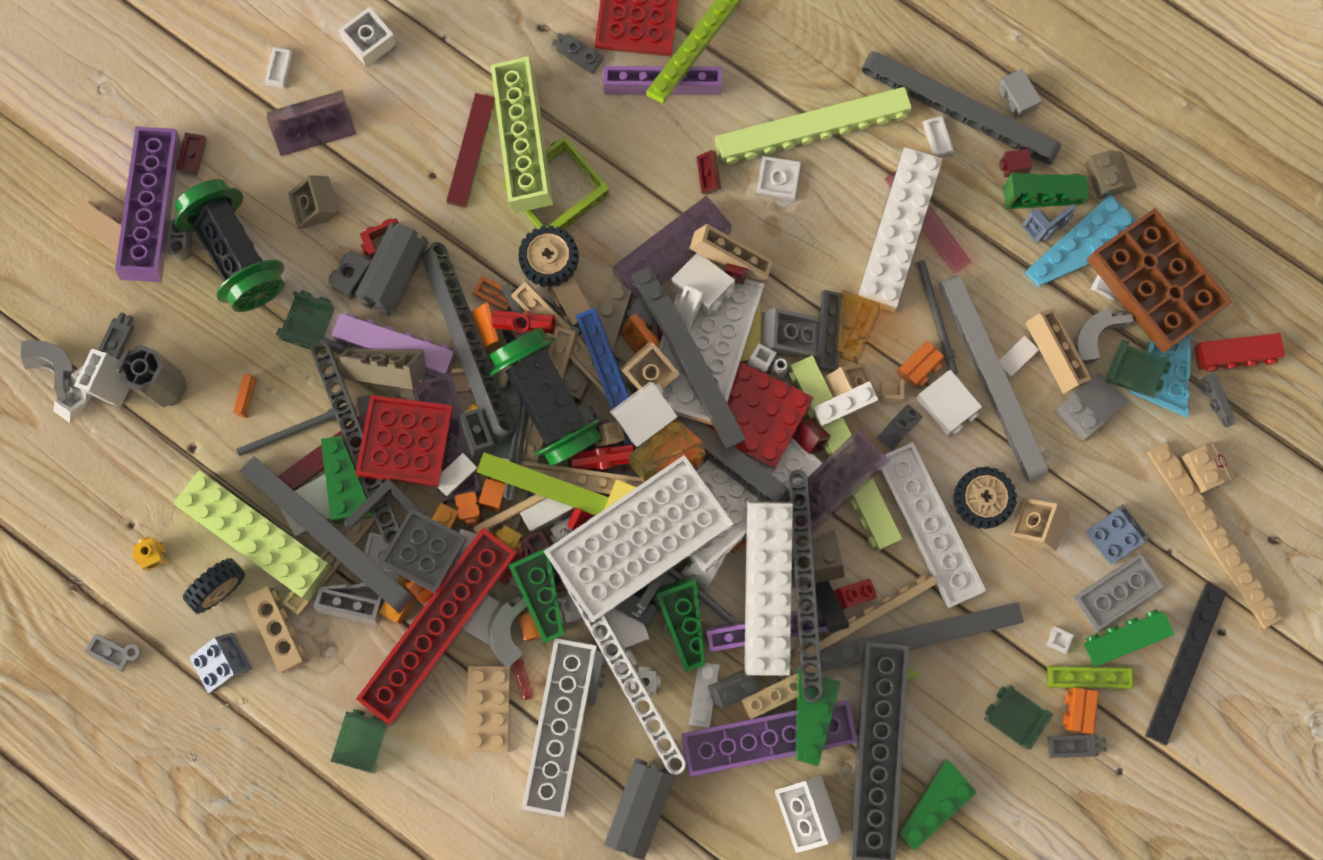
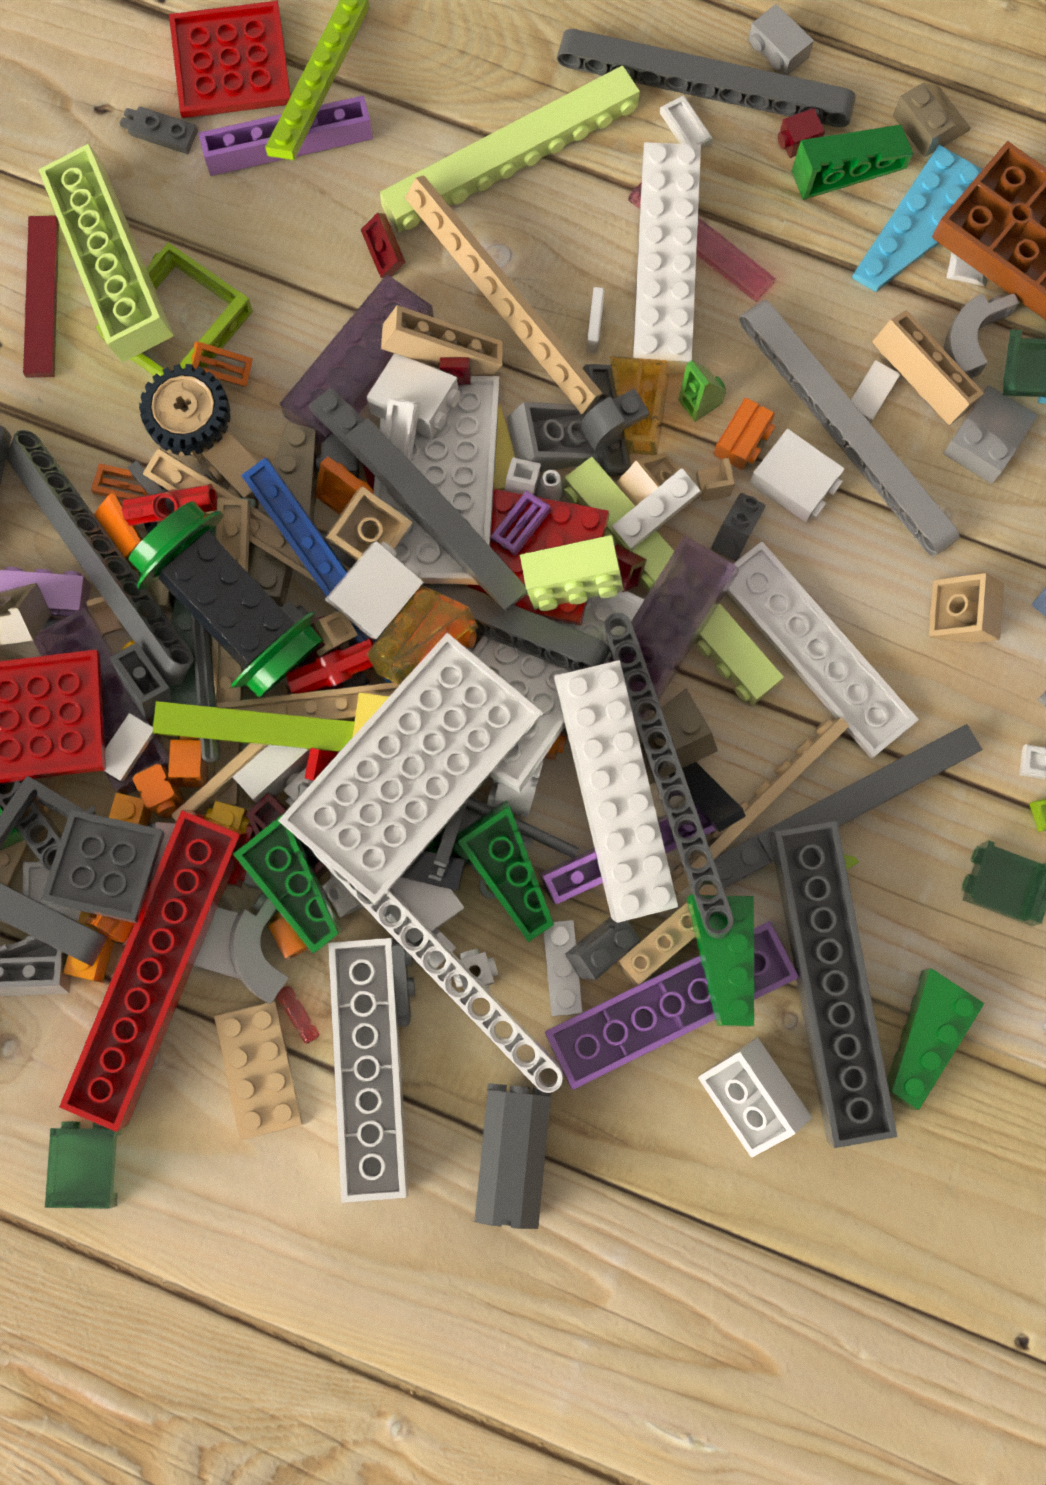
camera: 15 degrees left, 0 degrees up
(594, 236) = (197, 357): none -> orange tile
(755, 398) = (528, 531): none -> medium lavender tile
(777, 436) = (572, 573): none -> yellowish green brick
(778, 178) = (489, 226): white tile -> none
(781, 229) = (503, 295): none -> tan plate
(832, 333) = (610, 417): none -> dark grey brick
(839, 260) = (595, 320): none -> white tile
(855, 593) = (739, 770): red bracket -> none
(898, 328) = (700, 391): none -> bright green slope
(947, 352) = (779, 408): dark grey bar -> none
(996, 488) = (873, 611): wheel -> none
(1040, 228) = (858, 207): sand blue bracket -> none

